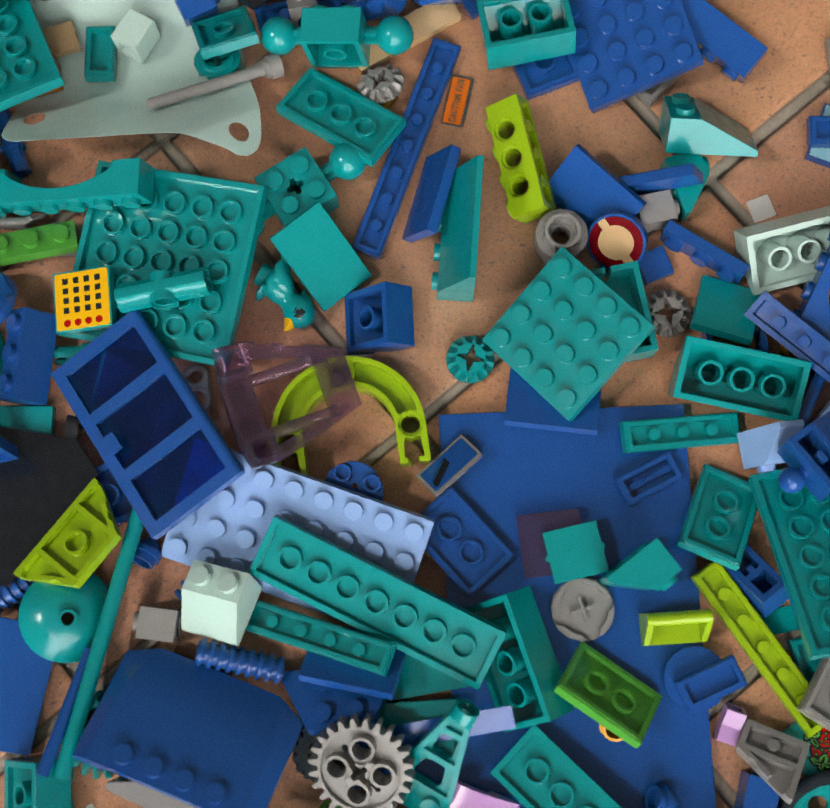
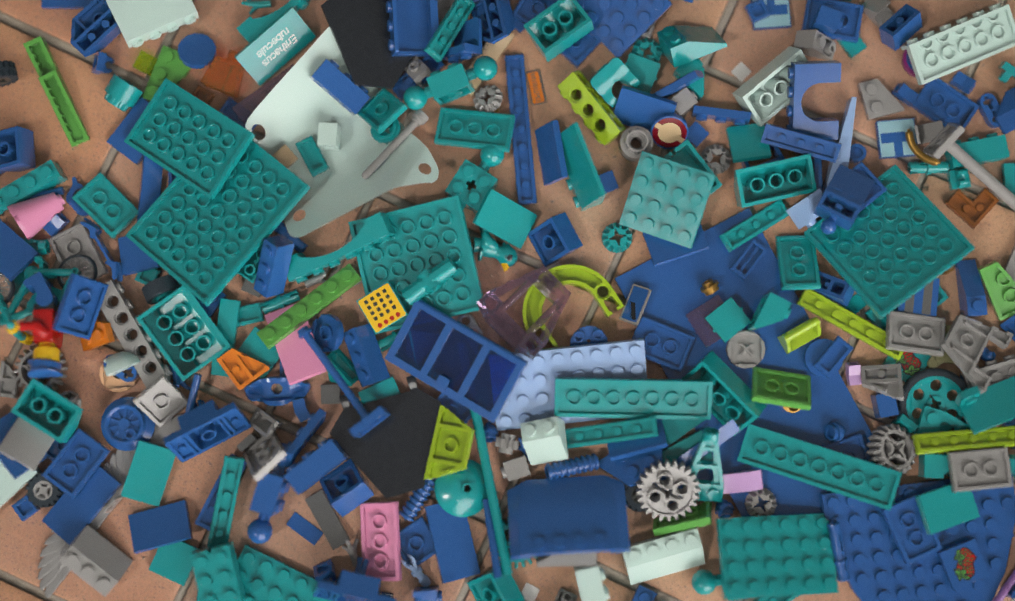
camera: 30 degrees left, 5 degrees up
(163, 581) = (507, 443): none -> light grey gear
(492, 274) = (608, 181): none -> blue tile
(568, 123) = (608, 75): none -> teal piece
(571, 491) = (709, 287): none -> pearl gold plate
(614, 142) = (644, 70): none -> teal piece
(634, 133) = (644, 44): none -> teal gear

